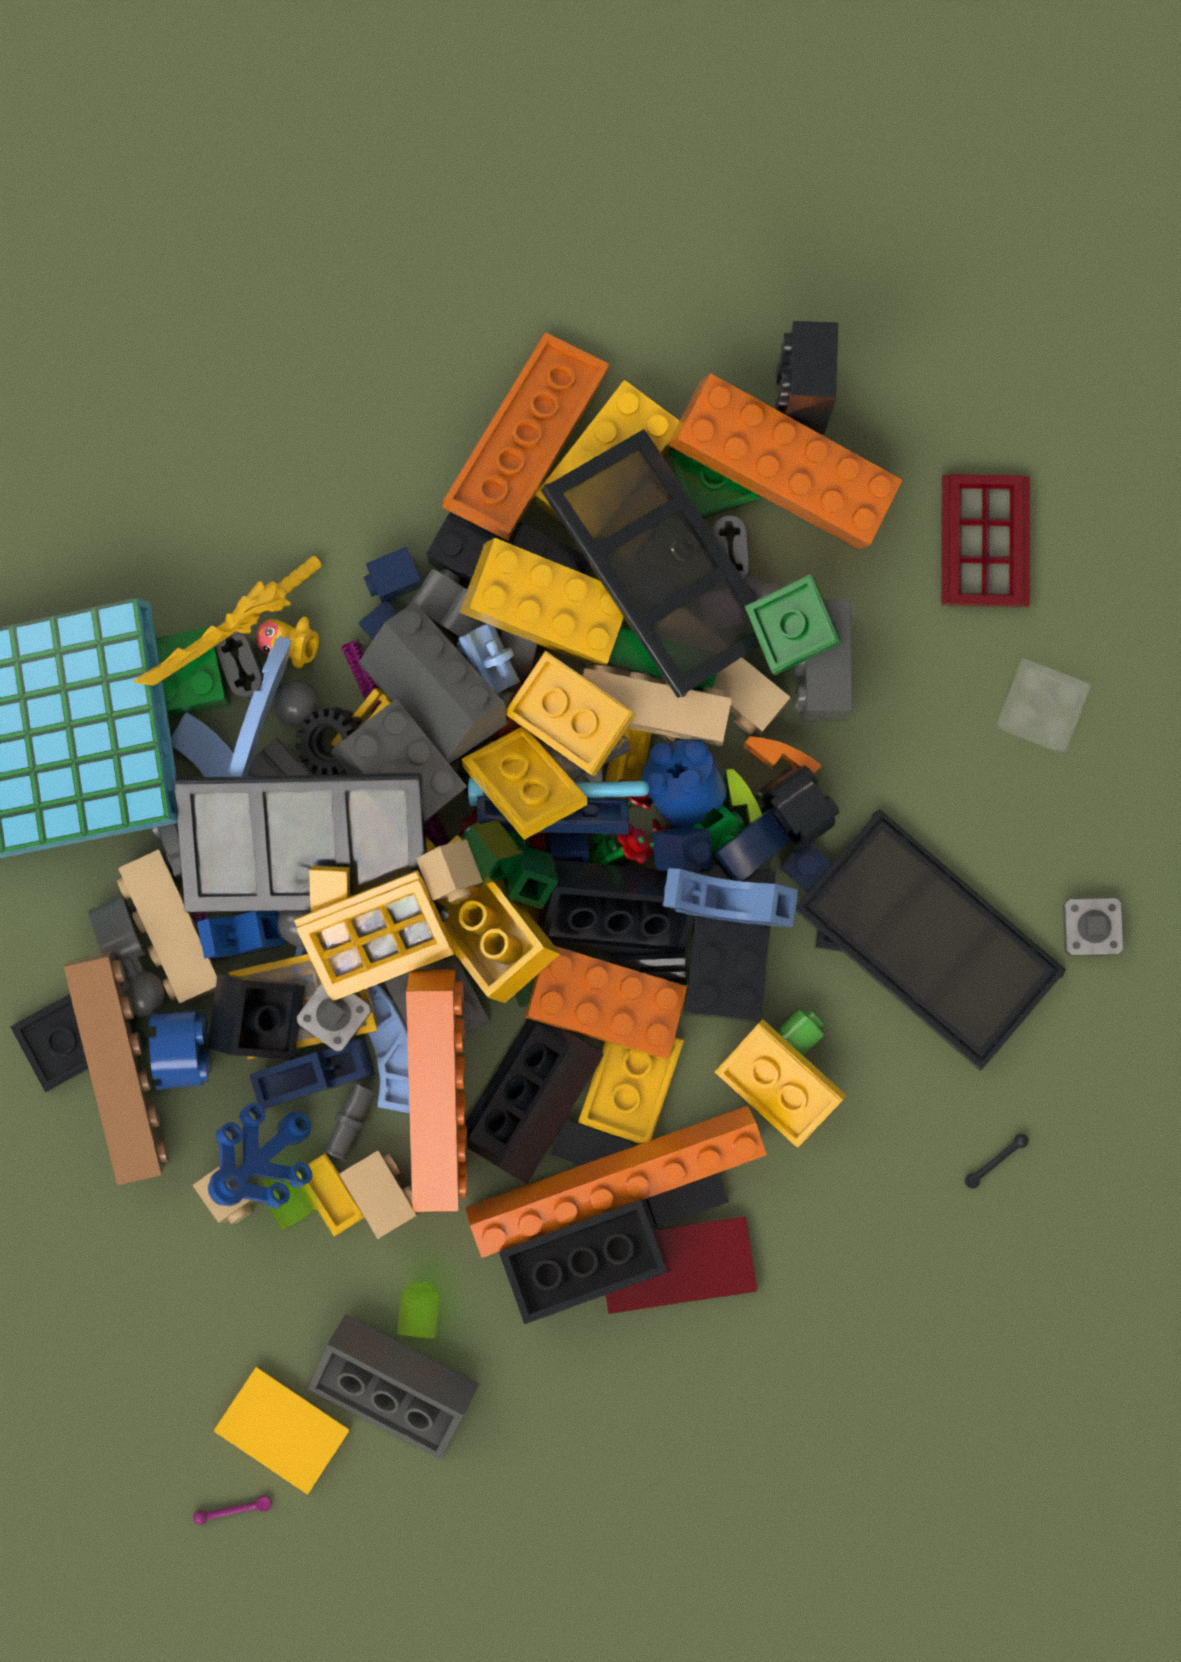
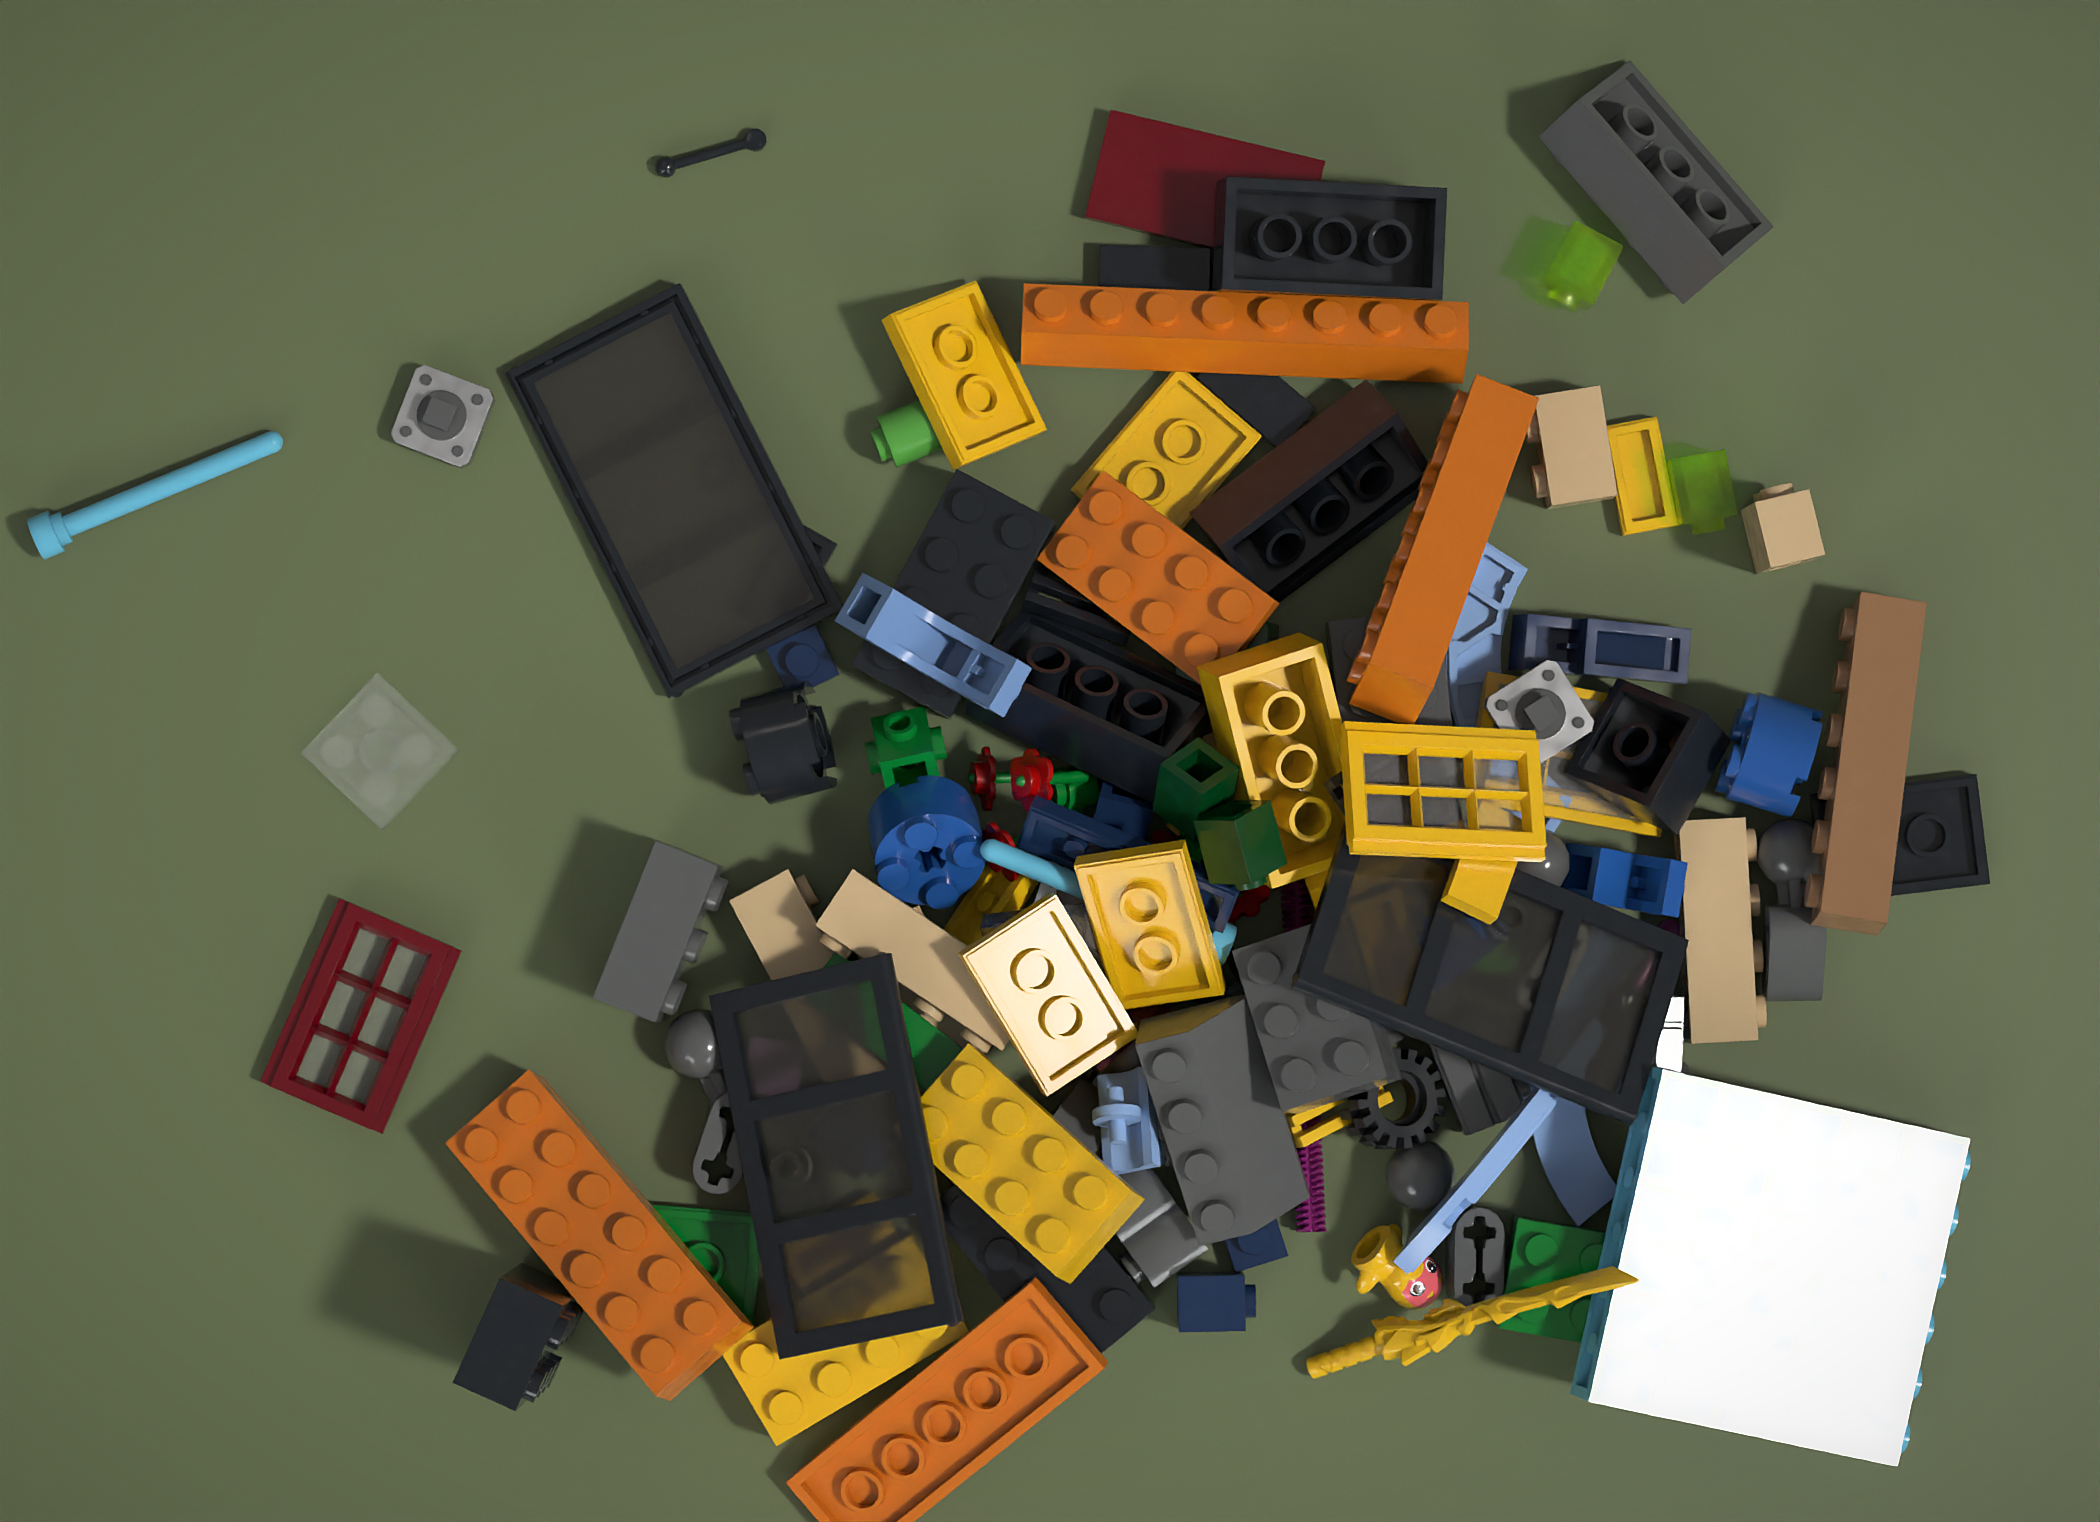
camera: 160 degrees left, 5 degrees up
(257, 1160) = (1723, 555): blue plant -> none
(262, 1504) = (1893, 98): magenta hinge -> none
(282, 1430) = (1829, 185): yellow tile -> none
(349, 1121) = (1573, 564): dark grey pin -> none
(449, 871) = (1305, 835): tan brick -> none
(683, 849) = (968, 744): dark blue brick -> none
(741, 796) = (853, 792): lime slope -> none
(752, 846) = (869, 709): dark blue slope -> none
(772, 751) = (784, 836): orange slope -> none
(793, 624) = (686, 993): green tile -> none

